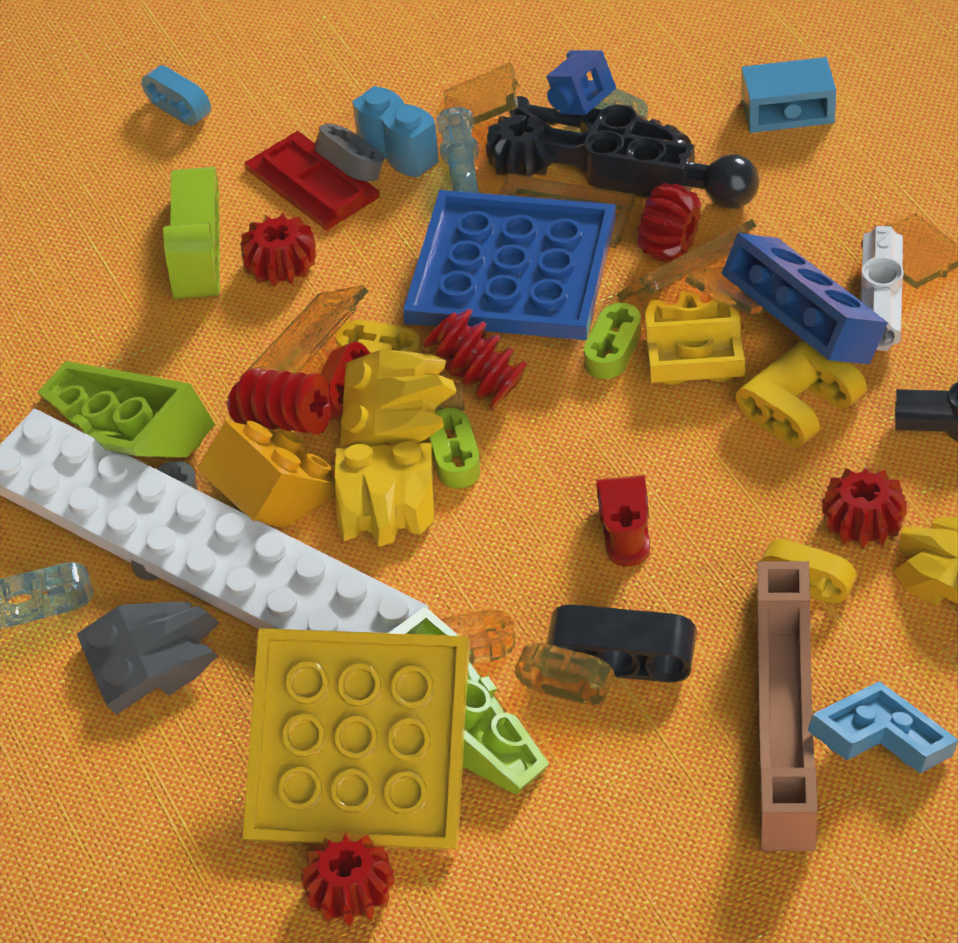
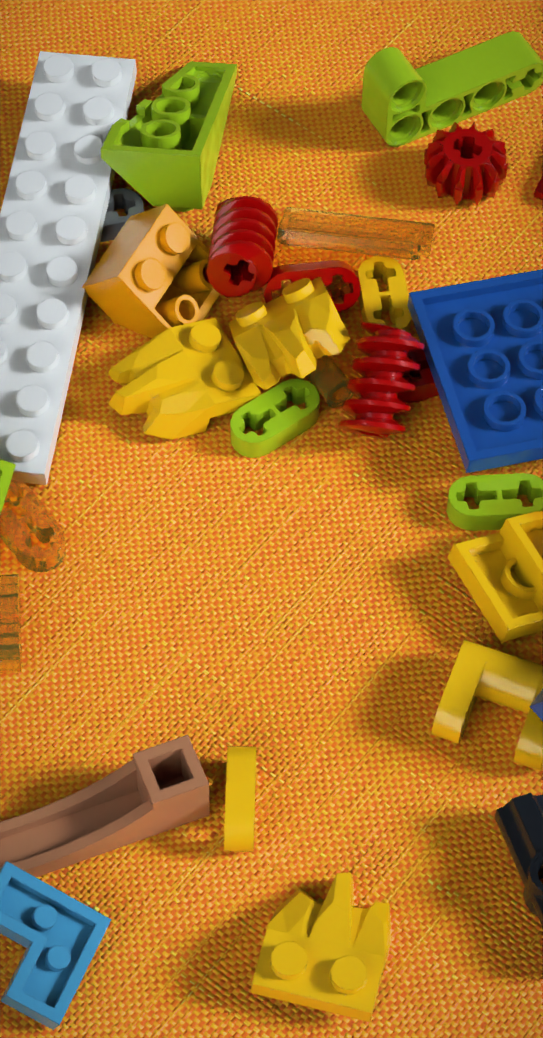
camera: 60 degrees right, 10 degrees up
(624, 518) = (246, 596): red piece -> none
(630, 641) = (66, 659): black beam -> none
(864, 507) = (357, 842): red gear -> none

